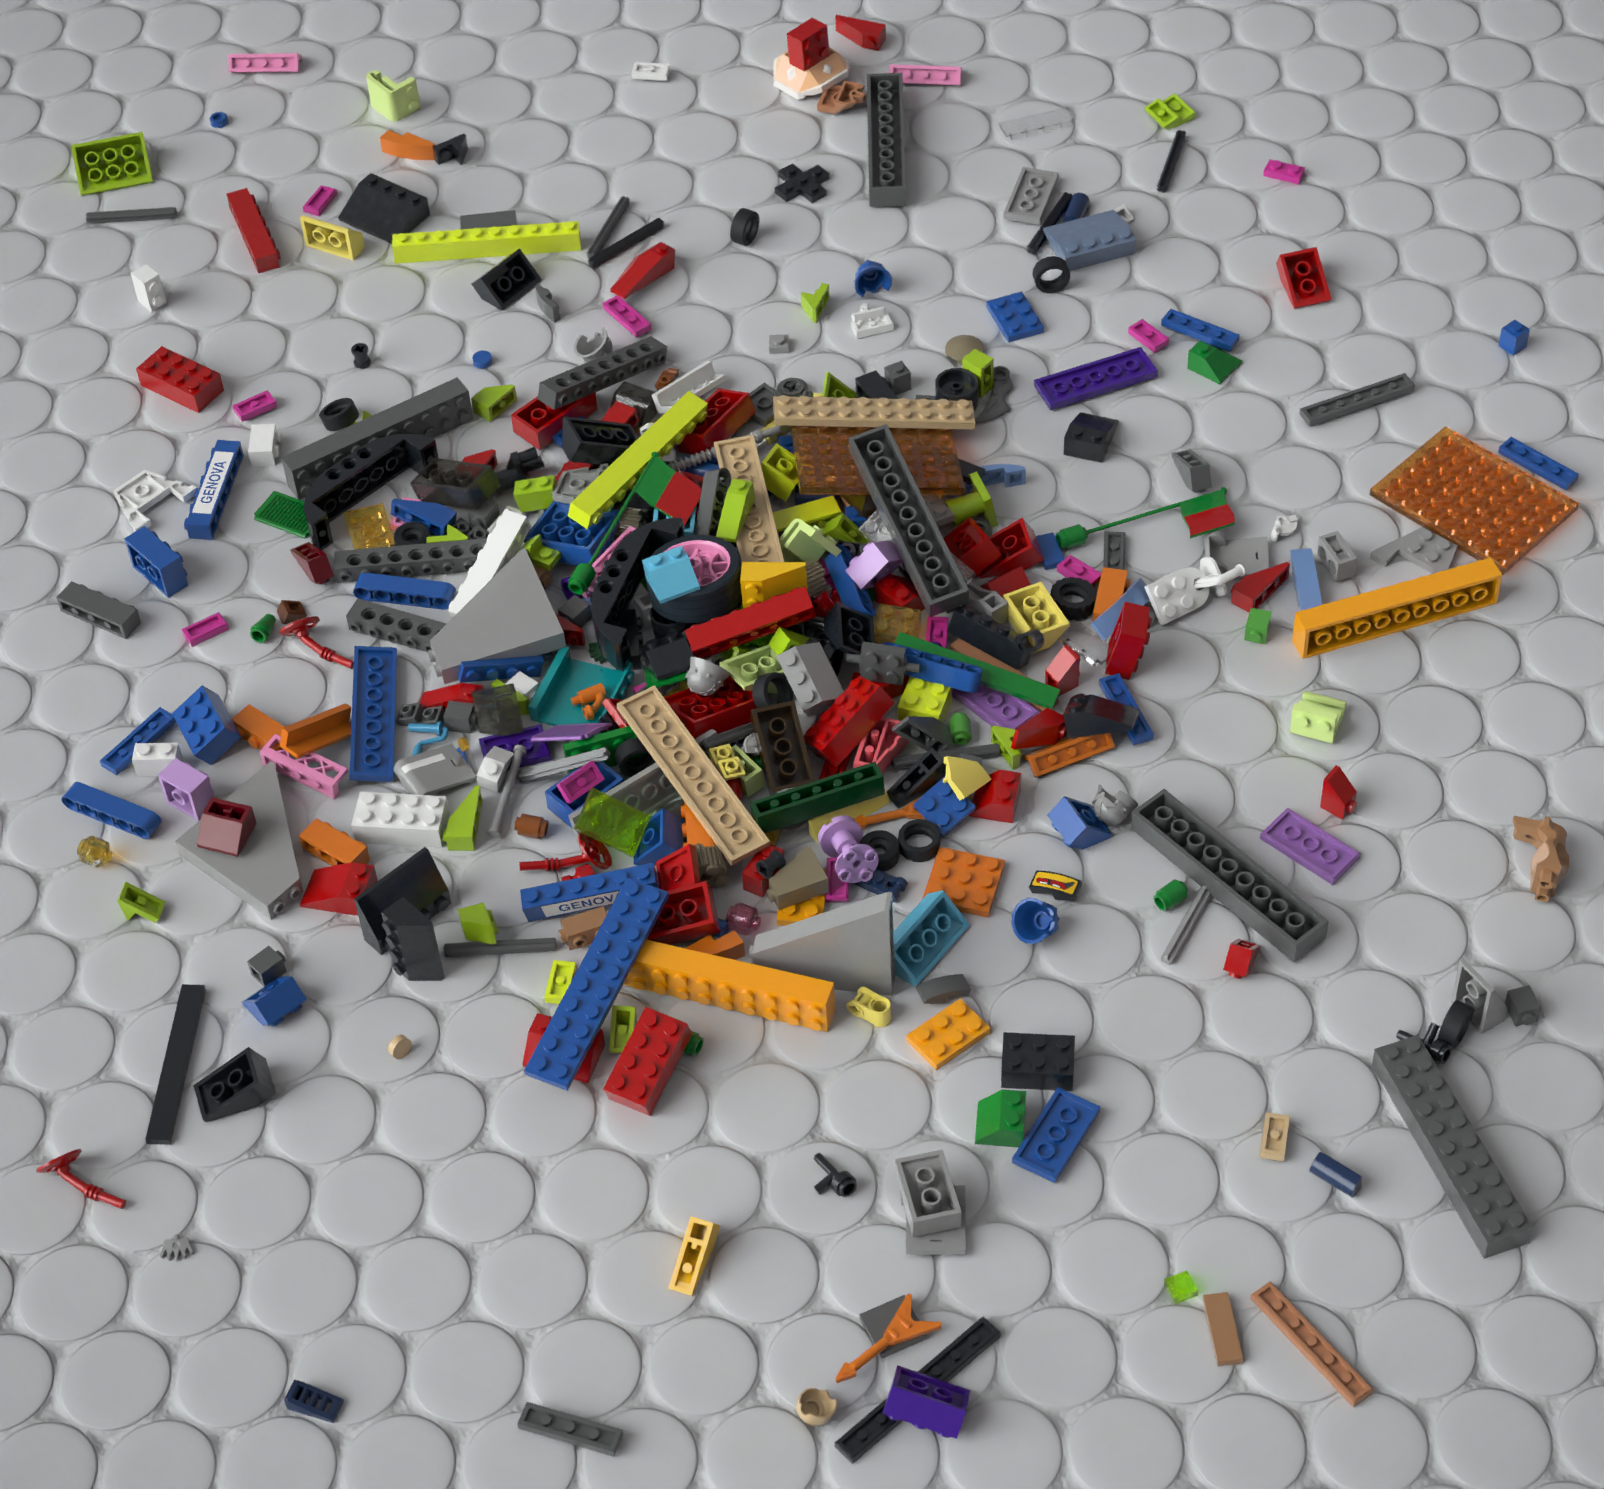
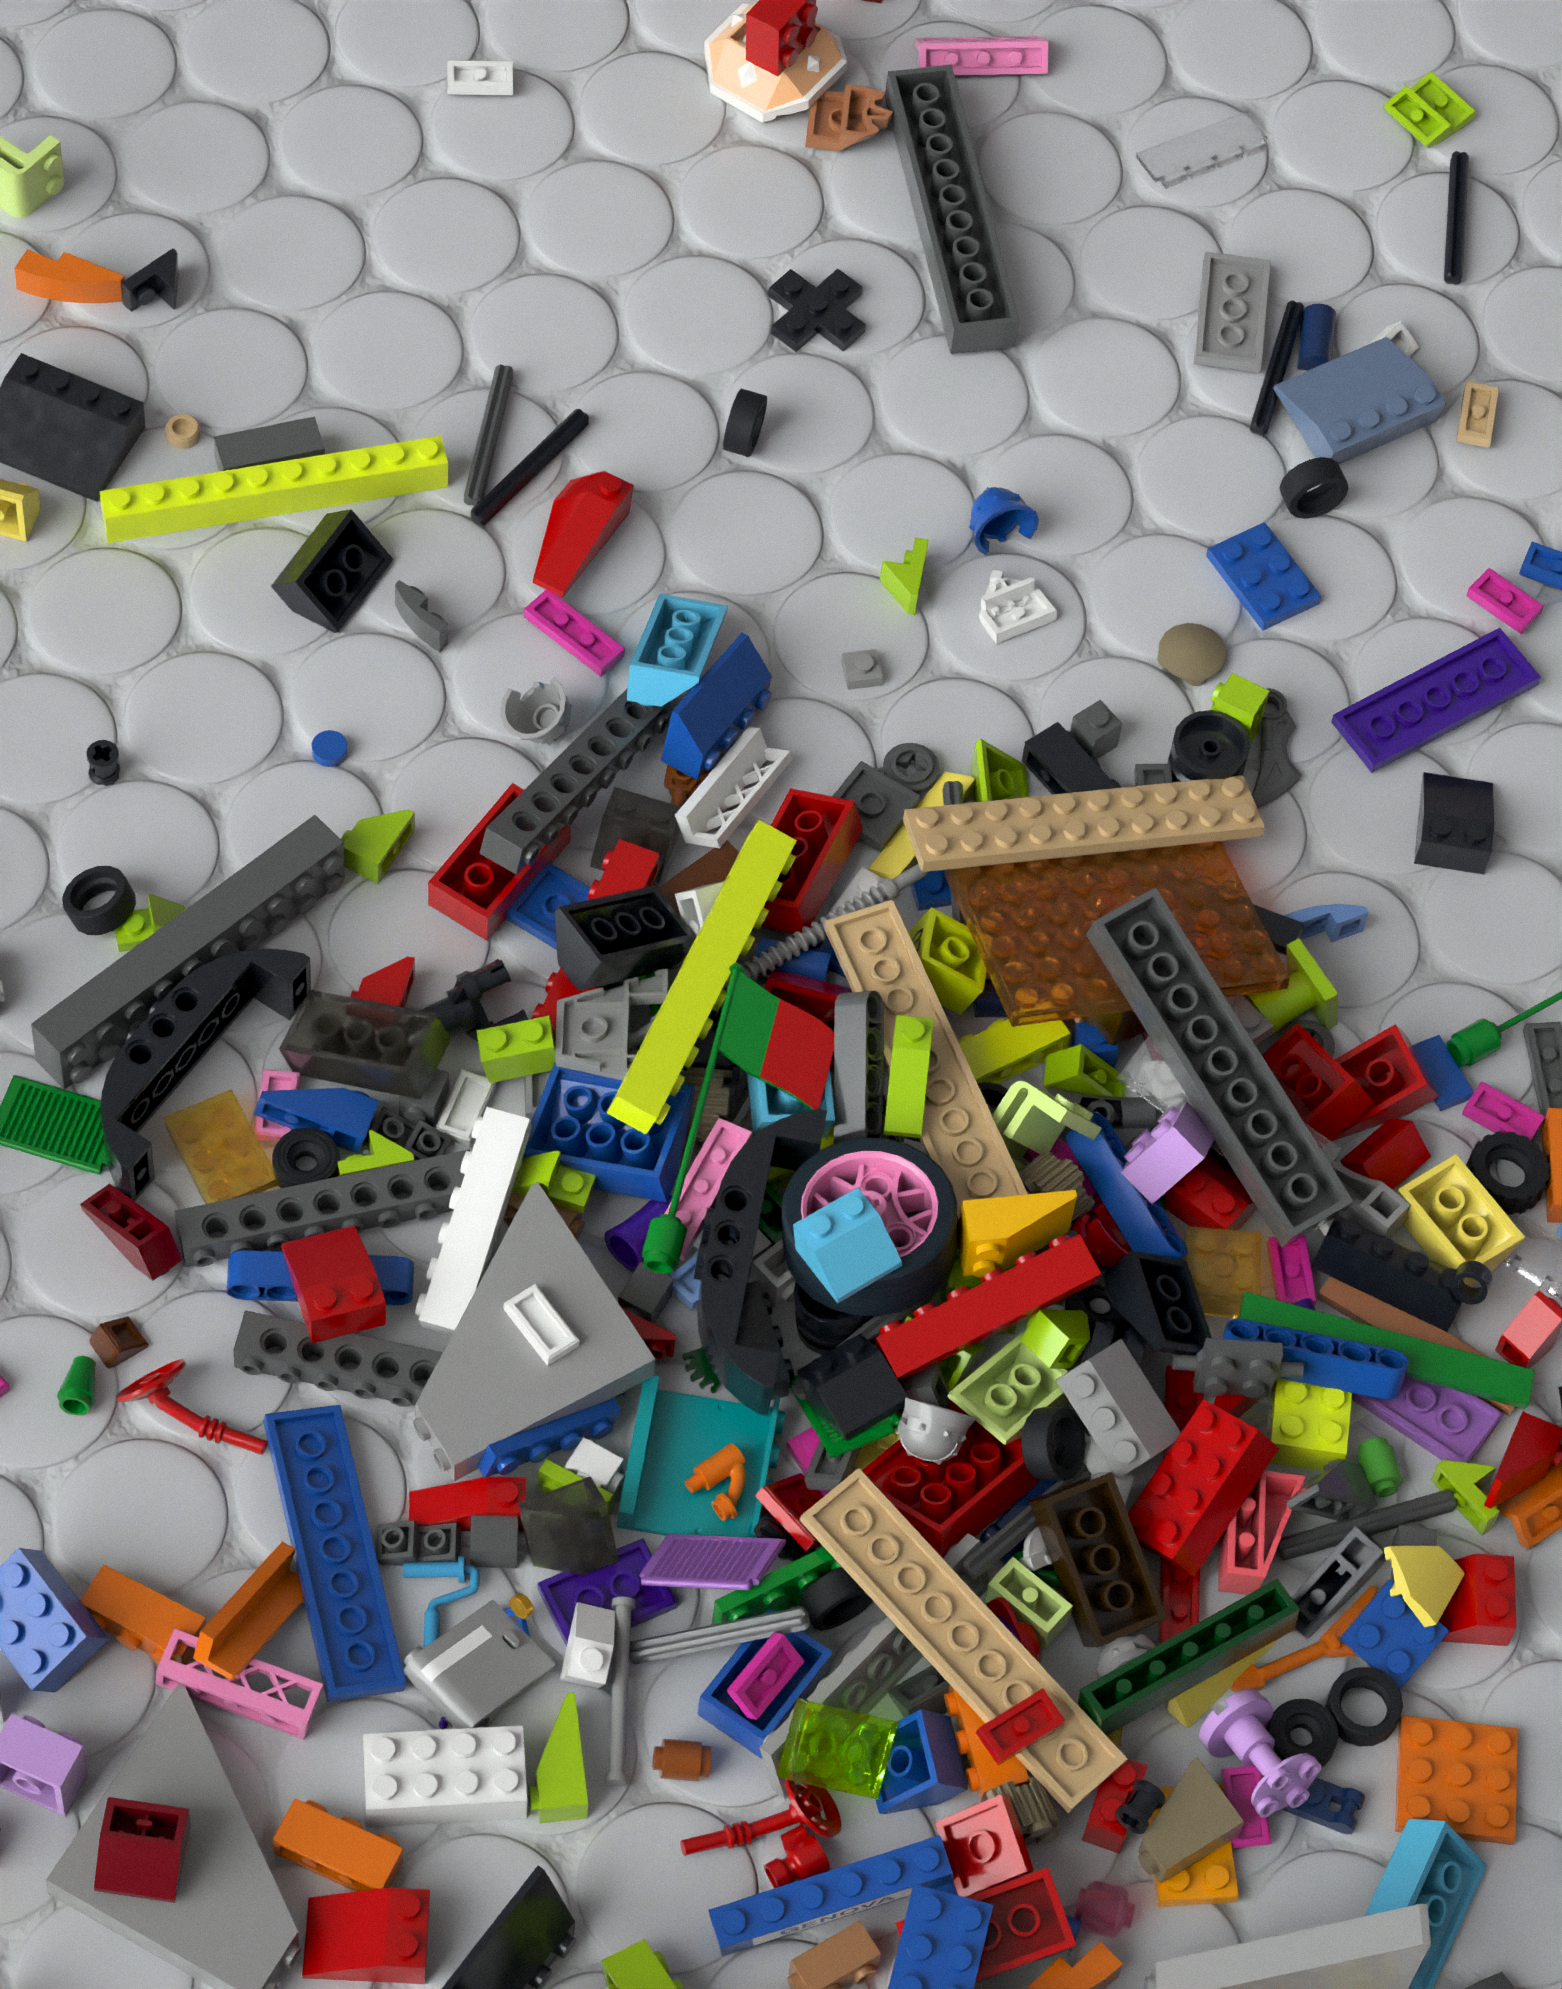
camera: 20 degrees left, 10 degrees up
(406, 590) = (335, 1284): none -> red slope
(448, 216) = (182, 431): none -> tan tile
(506, 610) = (541, 1324): none -> white tile
(669, 319) = (673, 649): none -> medium azure slope
(688, 348) = (717, 709): none -> blue slope
(710, 815) = (1020, 1726): none -> red plate
(726, 762) = (1011, 1604): light yellow slope -> none
(1157, 250) = (1477, 414): none -> tan plate

